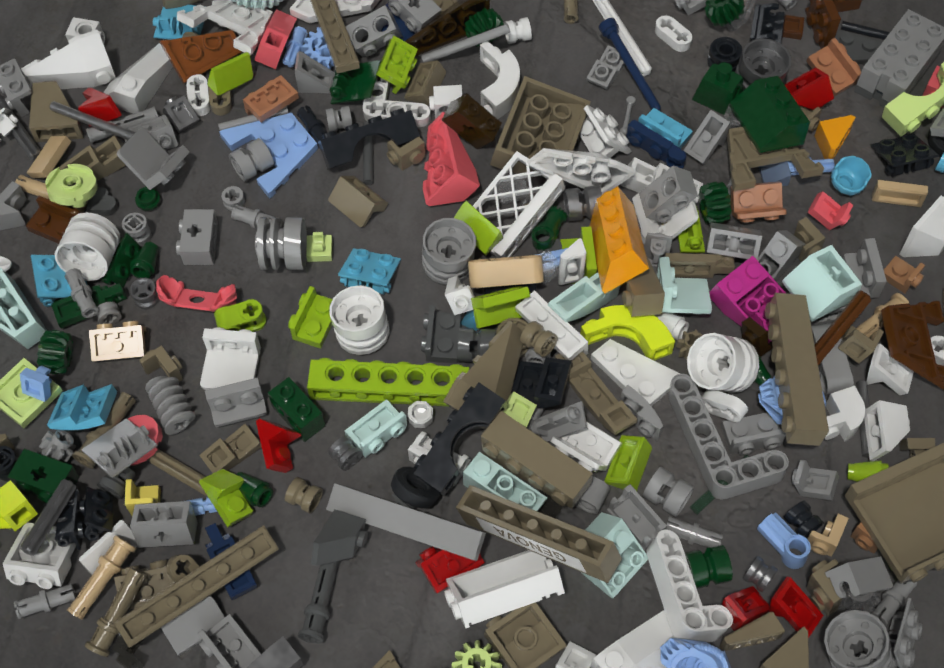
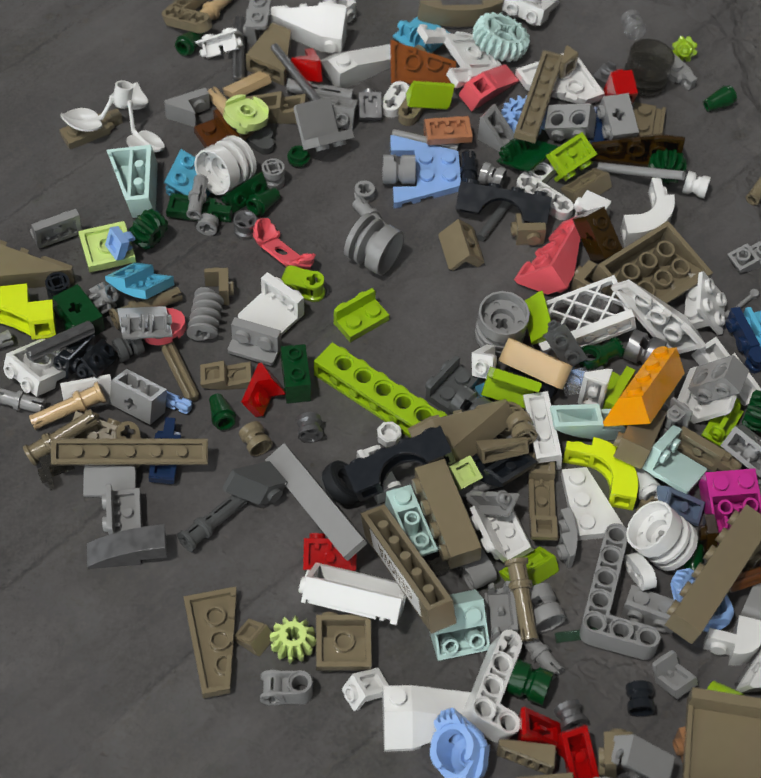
camera: 30 degrees right, 5 degrees down
(118, 342) = (199, 249): bracket -> none
(140, 495) = (132, 363): light yellow panel -> none
(198, 237) = (315, 205): light grey brick -> none
(226, 497) = (197, 405): lime slope -> none
(294, 45) = (500, 99): light blue axle -> none
(319, 247) = (404, 265): yellowish green tile -> none
(359, 320) = (391, 335): white wheel -> none
(369, 268) = (429, 304): medium azure hinge -> none
(377, 428) = (347, 424): light aqua bracket -> none
(482, 167) = (583, 275): none -> dark tan bracket
(520, 238) = (564, 343): none -> dark grey hinge
(534, 369) = (501, 449): none -> dark tan piece
(643, 485) = (521, 586): none -> dark tan pin
(714, 322) = (684, 504): none -> sand blue slope
(783, 538) = (611, 702): light blue piece -> none
(828, 541) = (654, 725): tan bracket -> none

